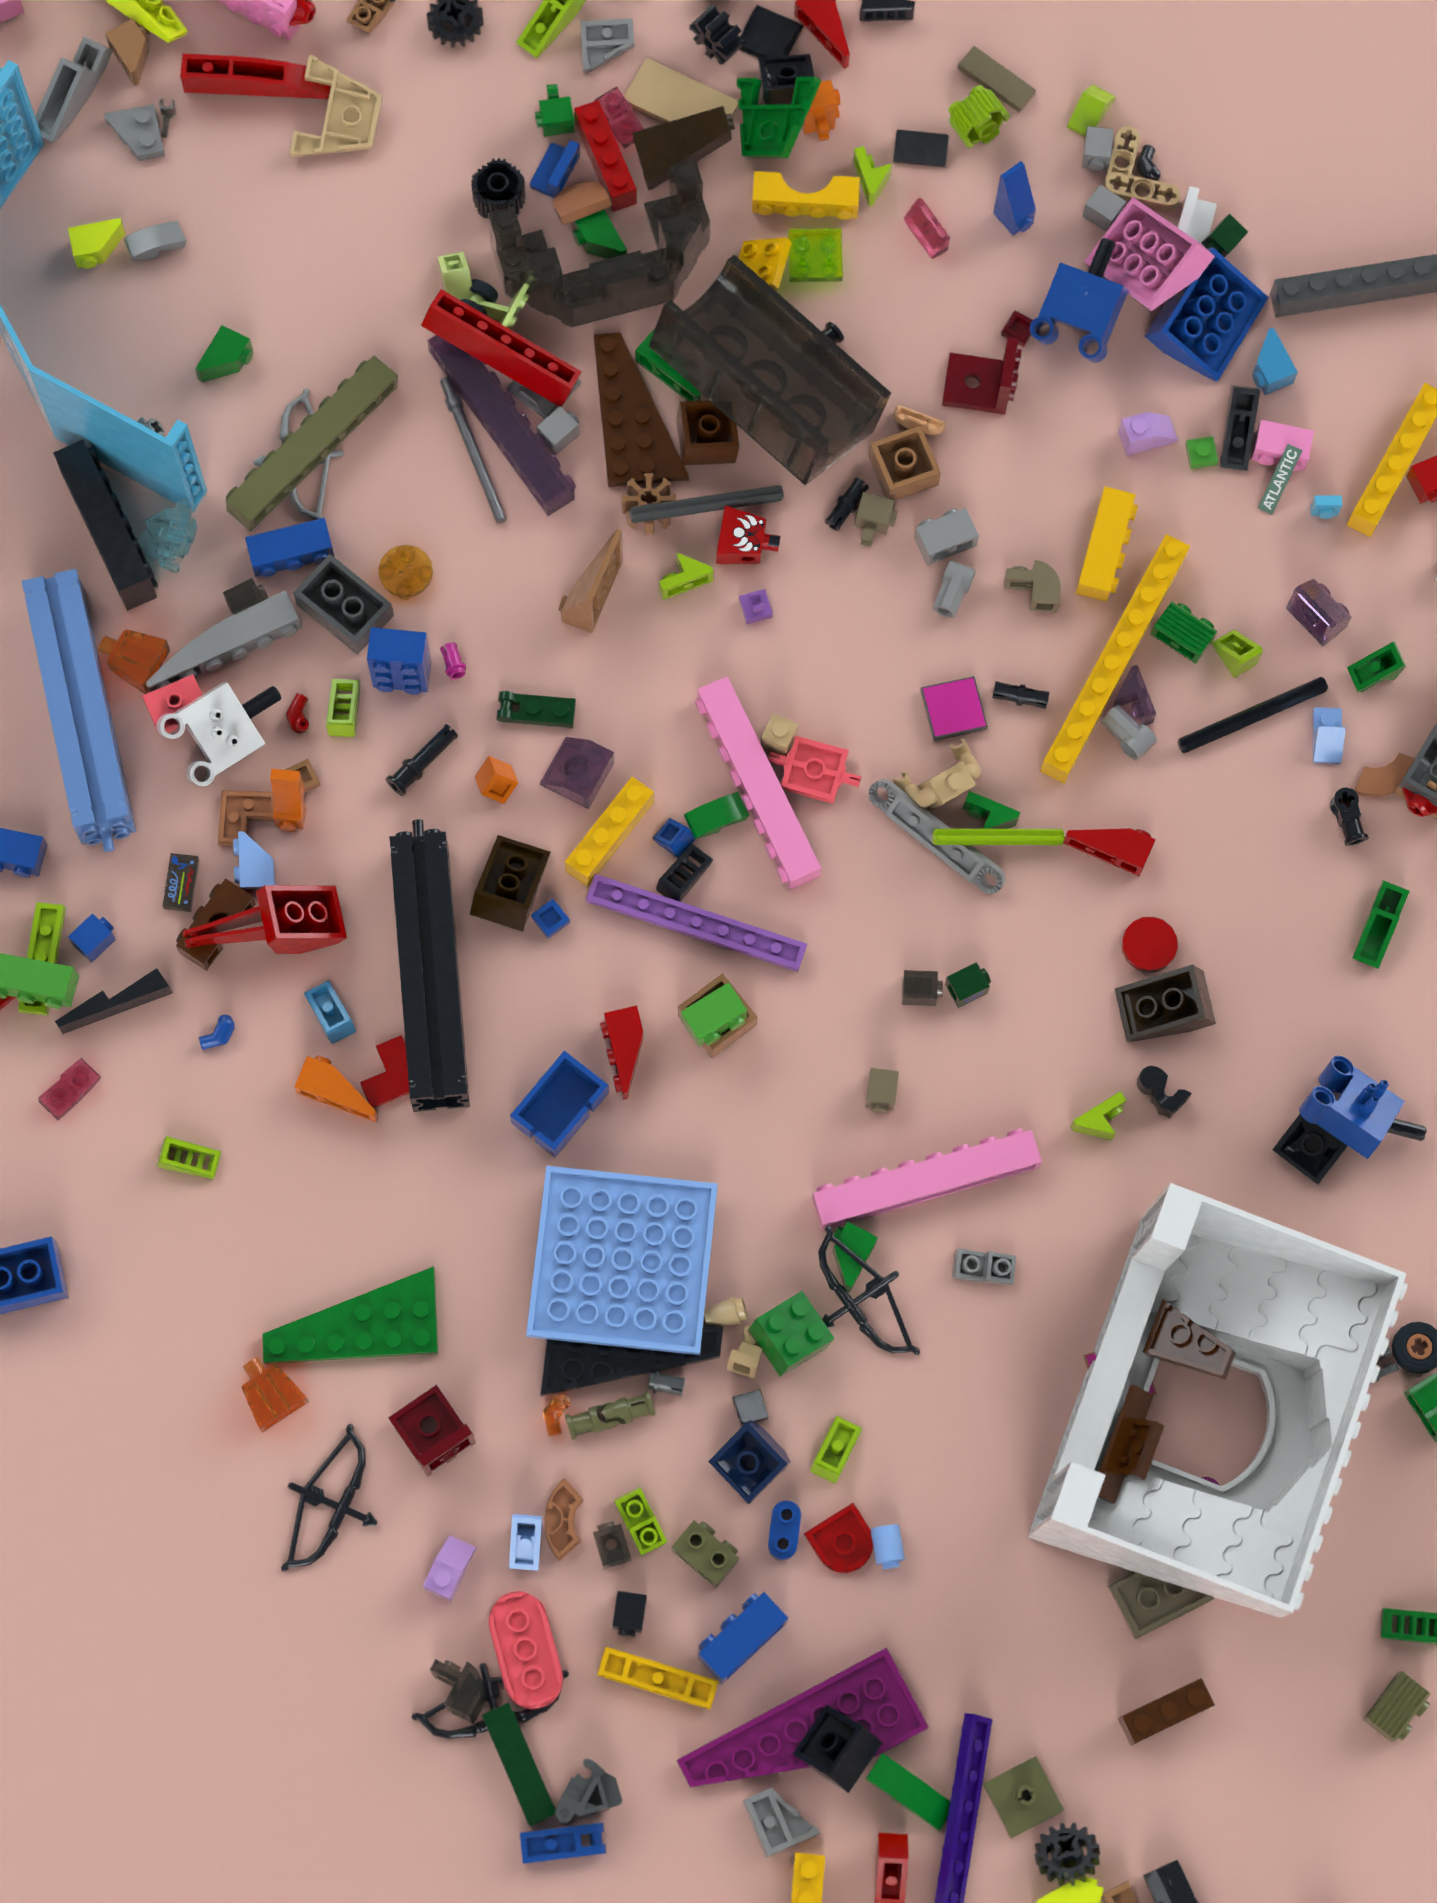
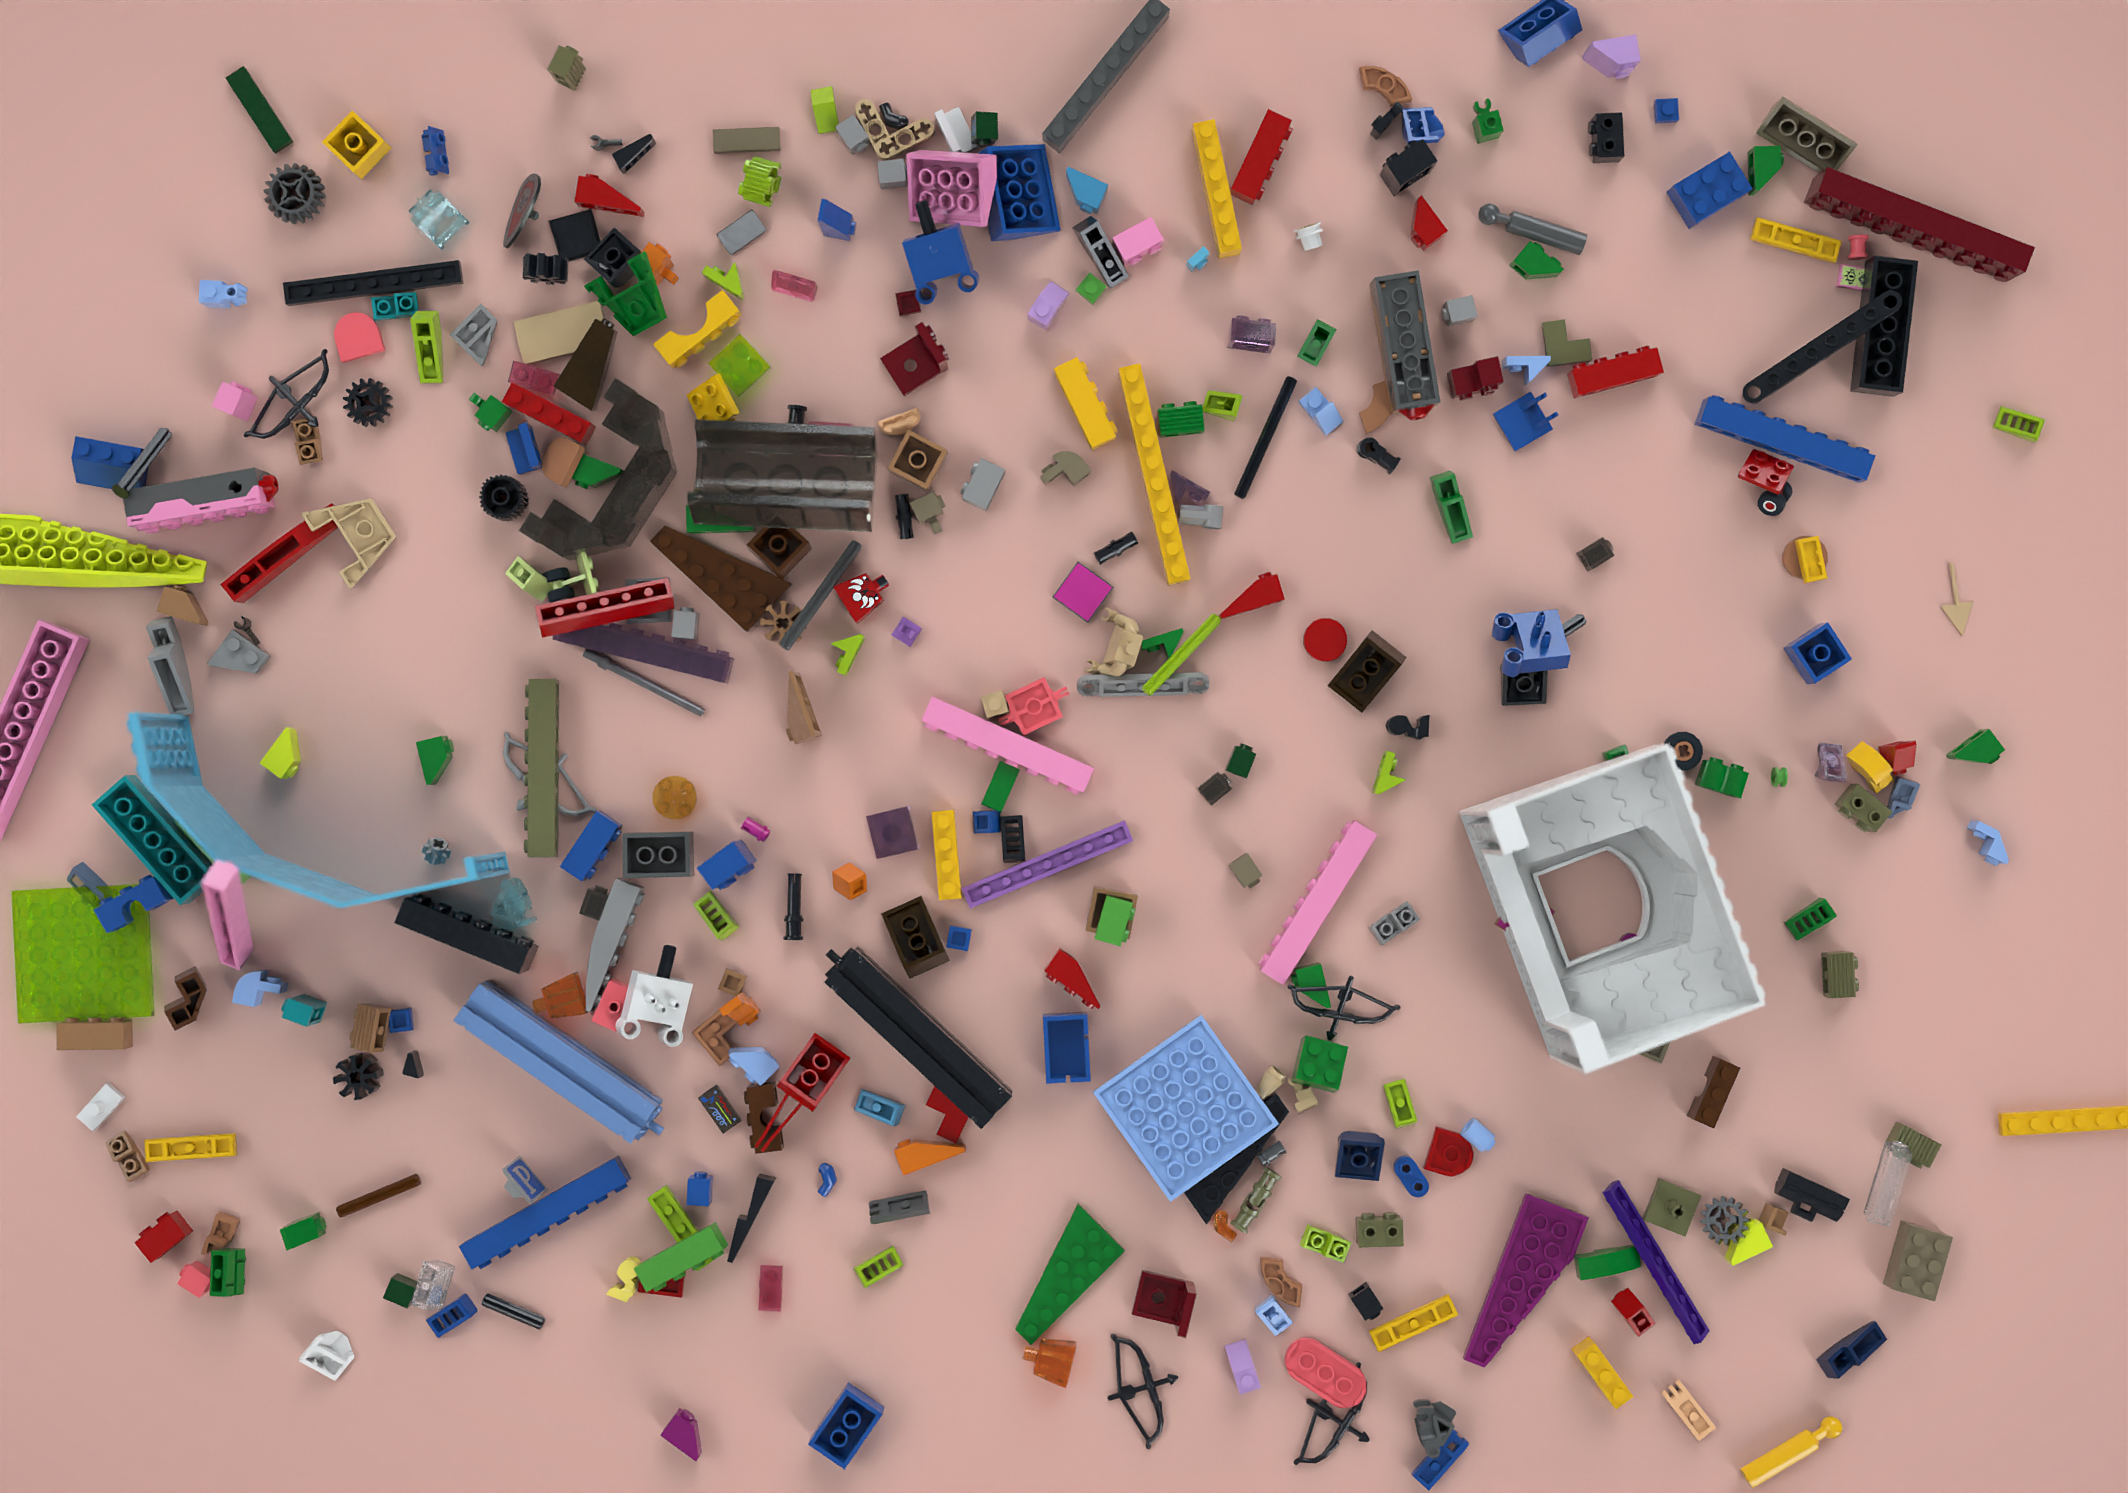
camera: 40 degrees left, 15 degrees up
(150, 240) = (319, 720): light grey slope -> none
(261, 1118) = (899, 1207): none -> dark grey hinge
(295, 715) = (692, 947): red arm -> none
(468, 1689) = (1315, 1425): clear smoke brick -> none
(519, 1764) = (1378, 1438): dark green tile -> none
(536, 710) = (834, 814): dark green plate -> none
(620, 1554) = (1328, 1278): clear smoke brick -> none
(741, 1636) = (1443, 1262): blue brick -> none
(750, 1407) = (1331, 1124): slope -> none
(776, 1822) = (1548, 1342): light grey wing -> none
(837, 1748) = (1550, 1277): black slope -> none
(955, 584) = (1015, 510): light grey piece -> none
(1130, 1445) = (1573, 963): reddish brown bracket -> none
(1186, 1344) = (1556, 875): wing -> none
(1280, 479) = (1155, 266): sand green sticker -> none

